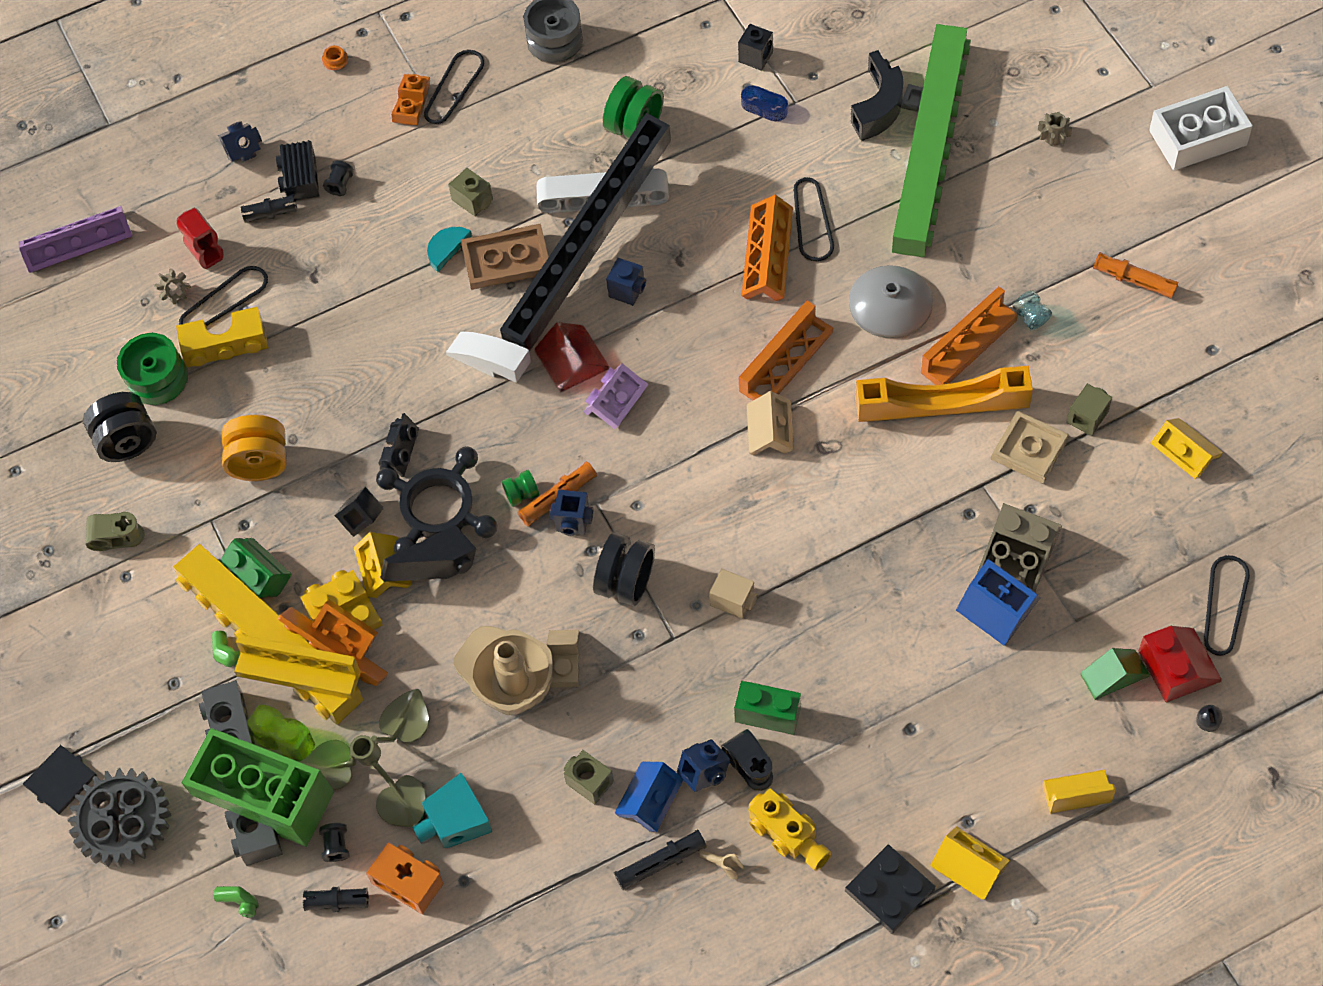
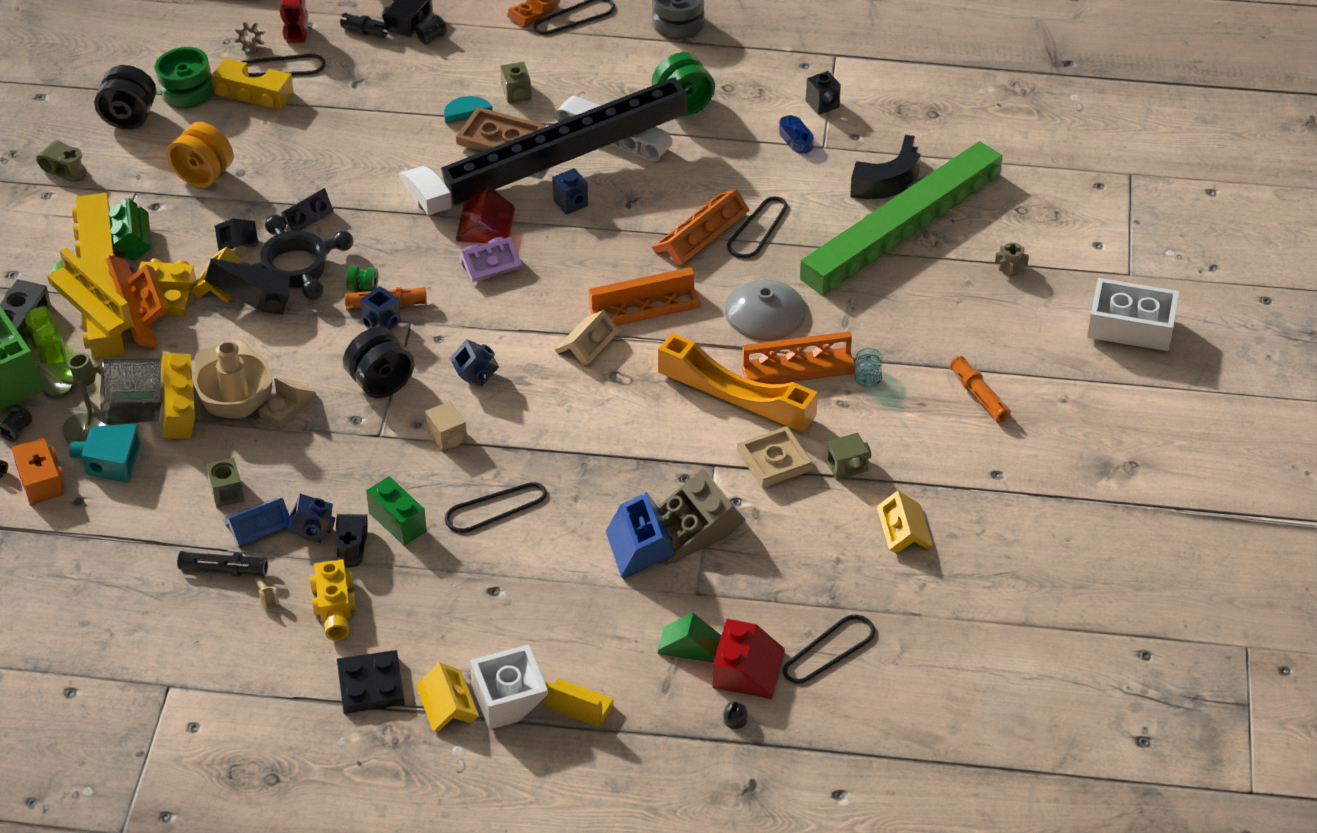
camera: 30 degrees right, 15 degrees down
(426, 743) = (130, 390): none -> clear smoke slope
(484, 733) = (178, 396): none -> yellow arch
(703, 513) = (474, 362): none -> dark blue brick
(850, 653) = (498, 516): none -> black piece
(1019, 818) = (507, 685): none -> white slope

